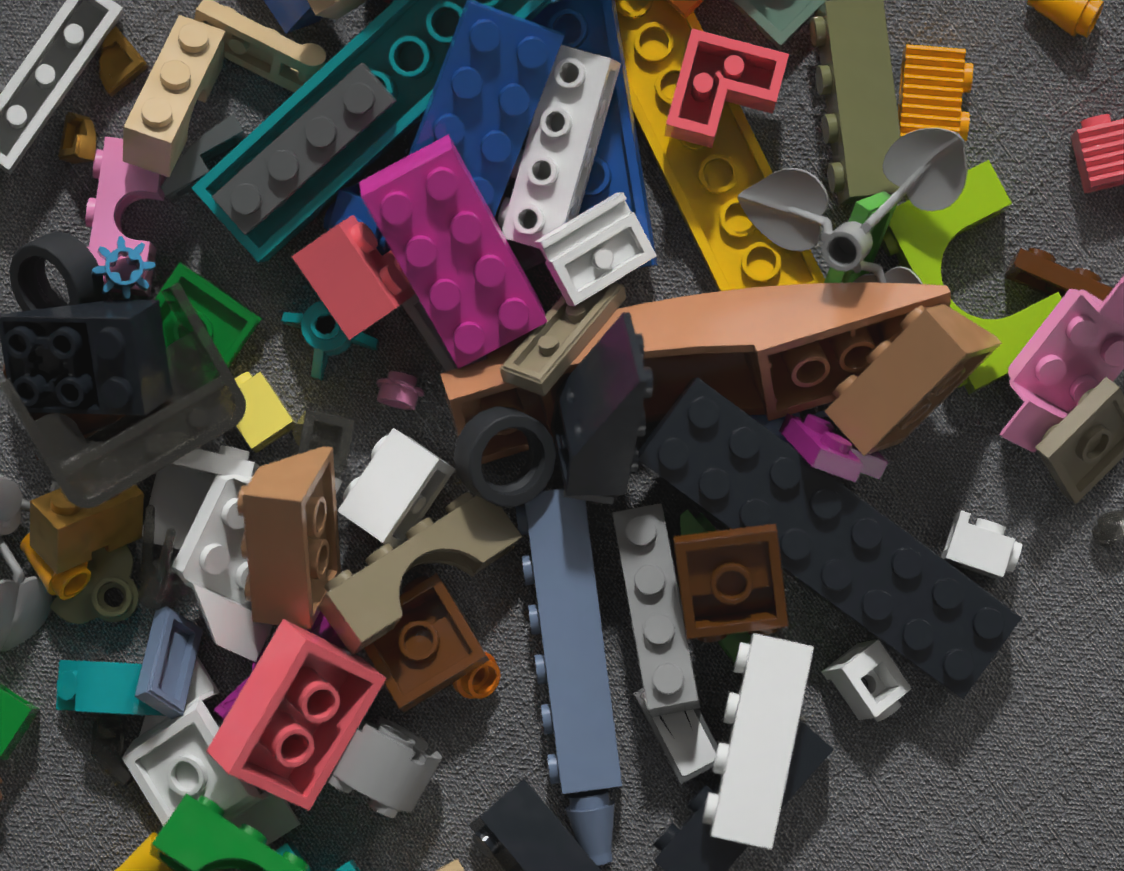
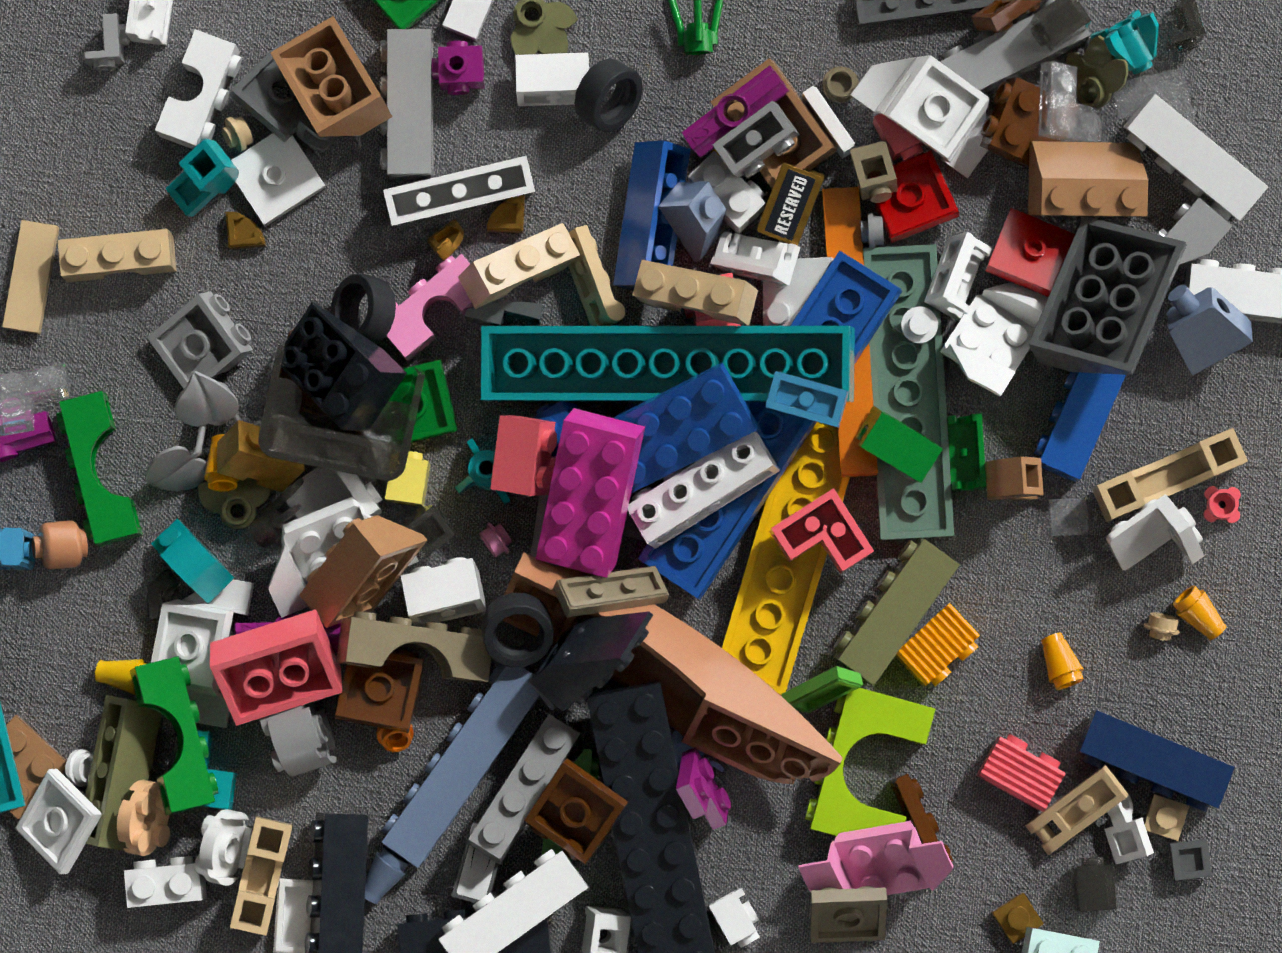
camera: 40 degrees right, 0 degrees up
(133, 258) = (414, 335): dark azure gear -> none
(168, 662) = (234, 575): sand blue tile -> none
(304, 148) = (561, 362): dark grey plate -> none
(595, 249) = (670, 561): white plate -> none
(791, 202) = (803, 634): light grey plant -> none
(909, 377) = (777, 789): medium nougat slope -> none

